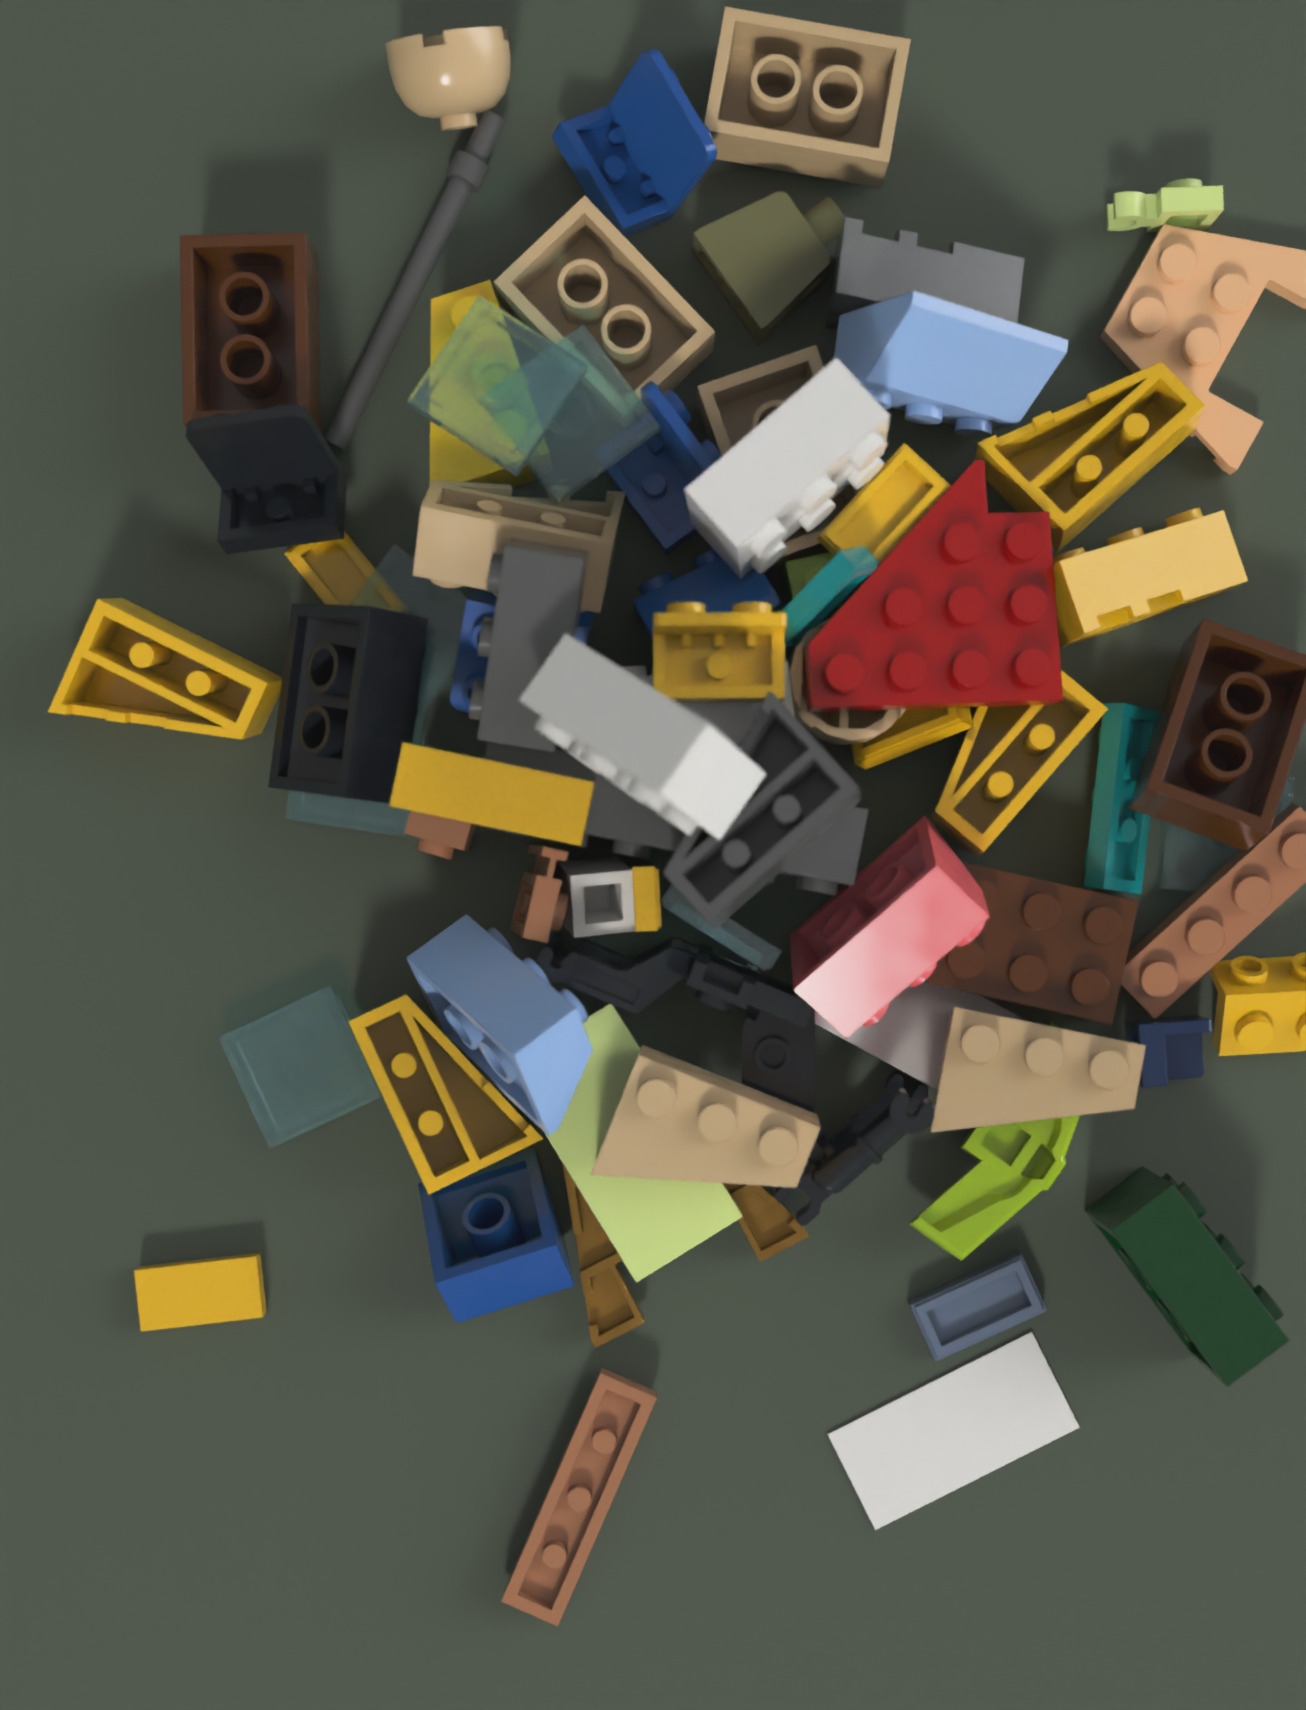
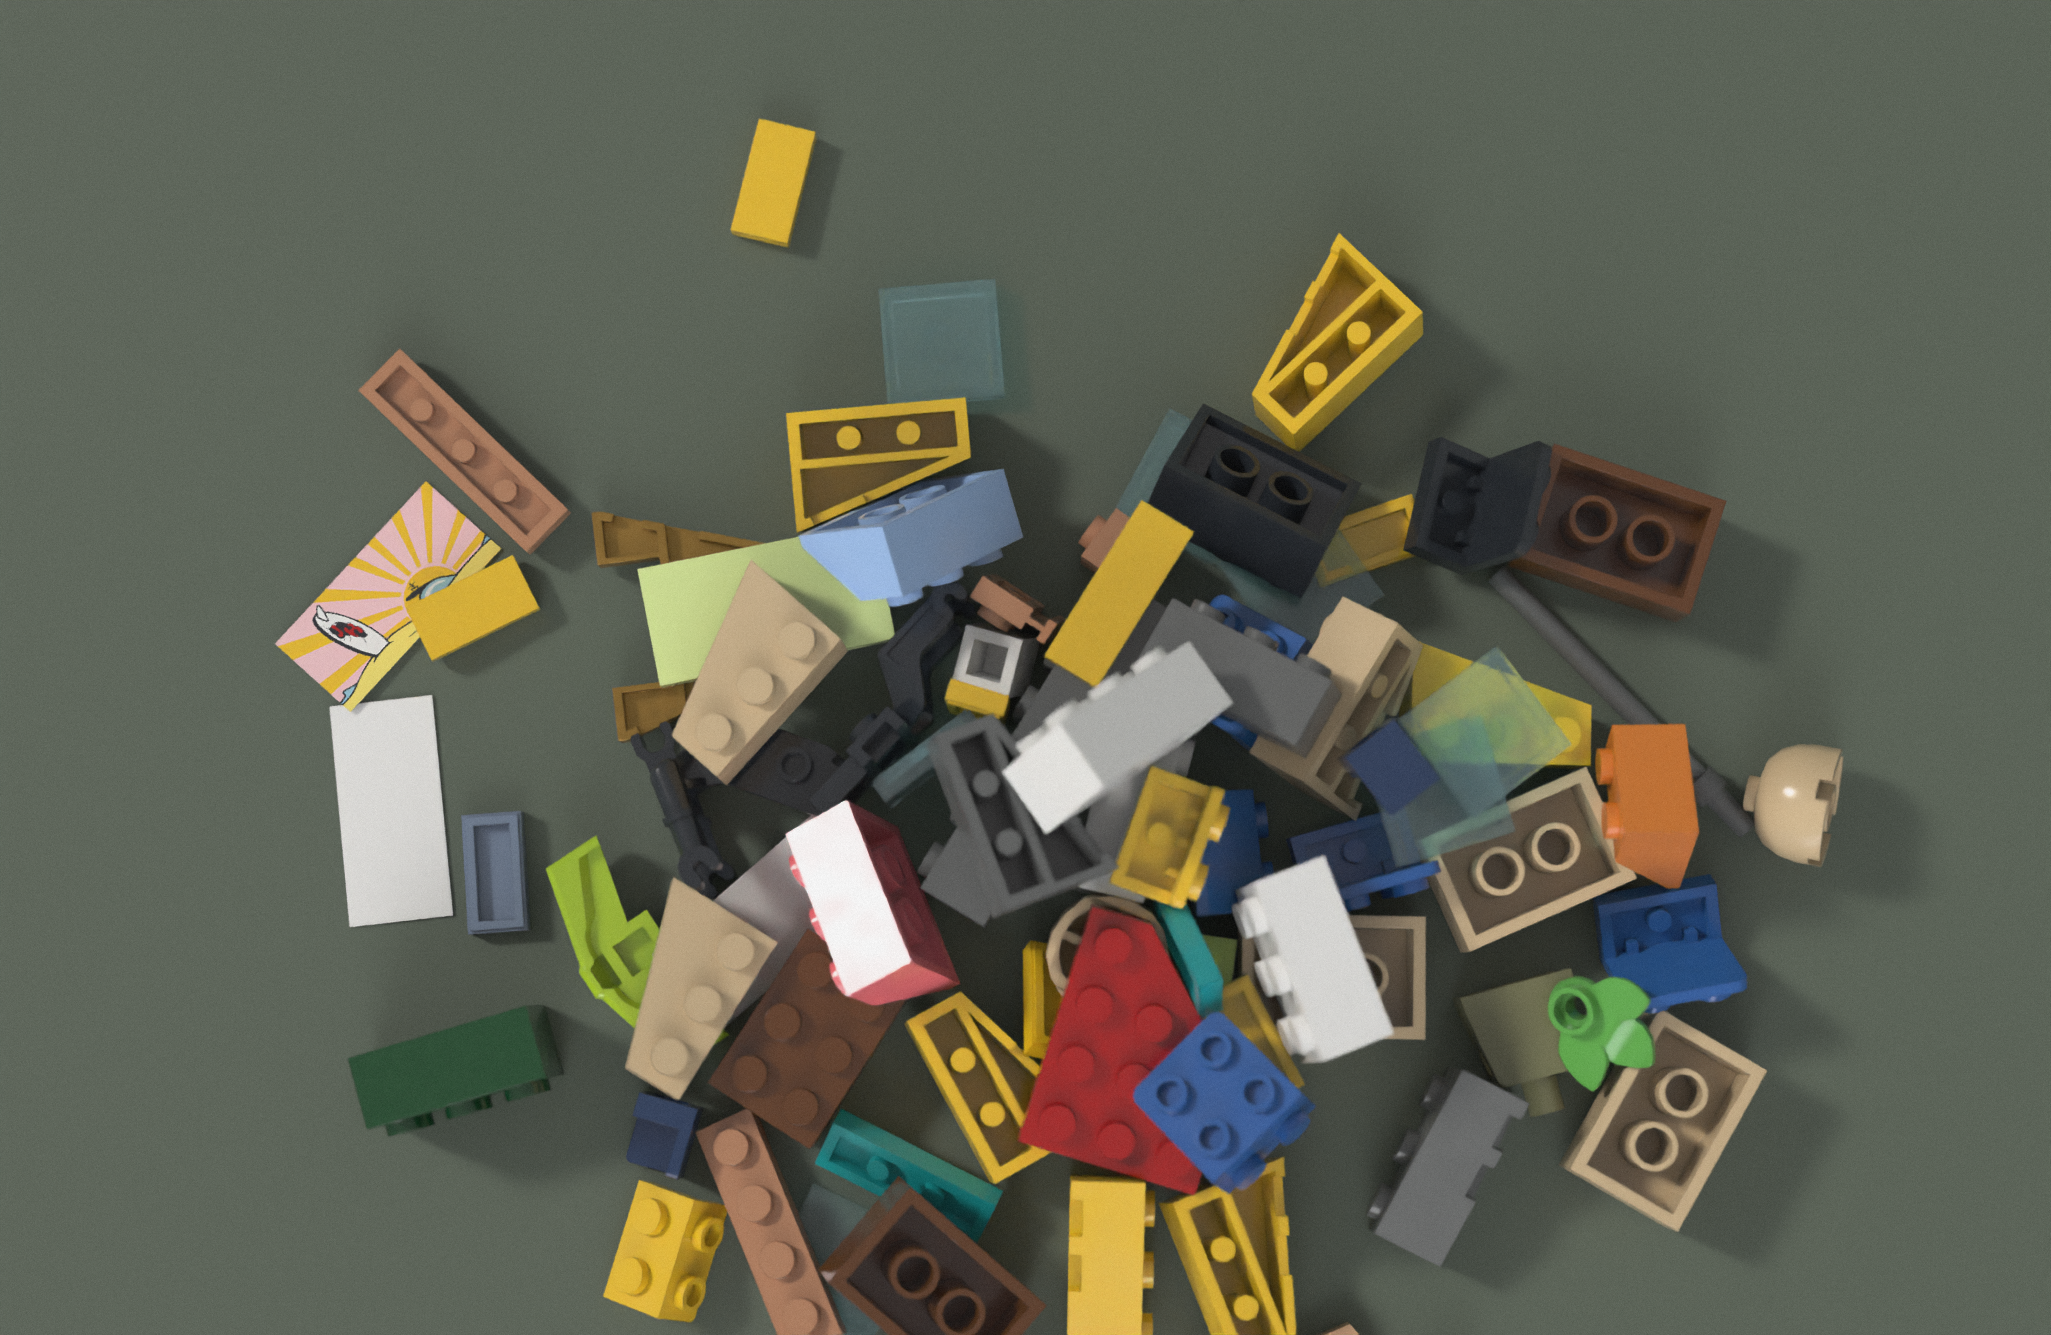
camera: 110 degrees right, 5 degrees down
(496, 1238) = (723, 460): blue slope -> none
(502, 205) = (1649, 799): none -> orange slope
(567, 463) = (1389, 766): none -> dark blue panel
(730, 1428) = (472, 608): none -> yellow tile
(745, 170) = (1608, 1030): none -> bright green plate
(747, 1514) = (361, 618): none -> sticker
(947, 362) = (1363, 1146): light blue slope -> none
(957, 511) = (1223, 1103): none -> blue bracket

